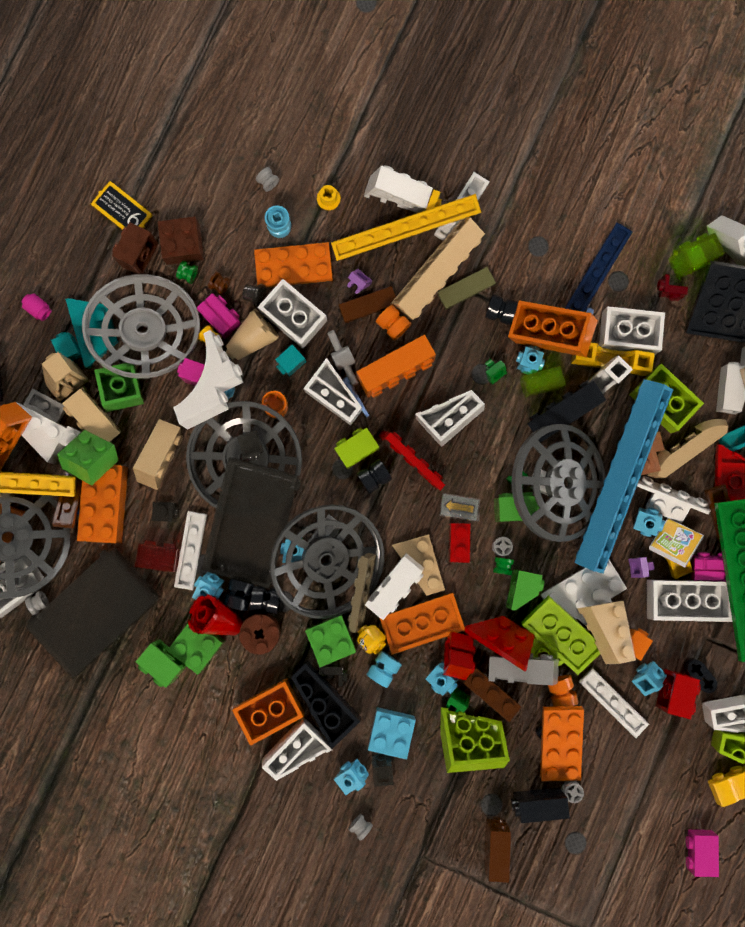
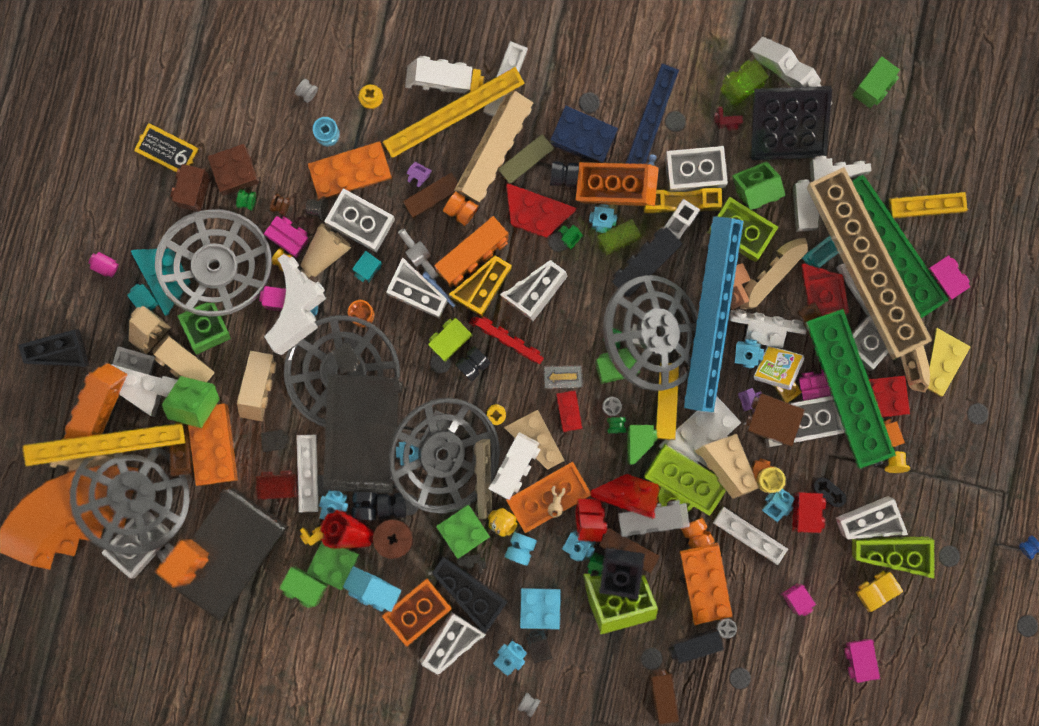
camera: 15 degrees left, 0 degrees up
(43, 617) = (183, 562): none -> orange brick
(176, 614) = (311, 540): none -> yellow bracket
(227, 681) = (371, 589): none -> medium azure brick
(387, 526) = (496, 410): none -> yellow wheel
(399, 402) = (482, 286): none -> yellow wedge
(428, 632) = (556, 506): none -> tan arm
(465, 341) = (536, 212): none -> red wing
(481, 718) = (622, 573): none -> black brick
(527, 275) = (583, 135): none -> dark blue brick
(557, 559) = (667, 408): none -> yellow tile
(649, 654) = (770, 480): none -> light yellow wheel
(652, 779) = (798, 600): none -> dark pink brick
(665, 595) = (774, 420): none -> reddish brown brick
(691, 358) = (758, 185): none -> bright green brick

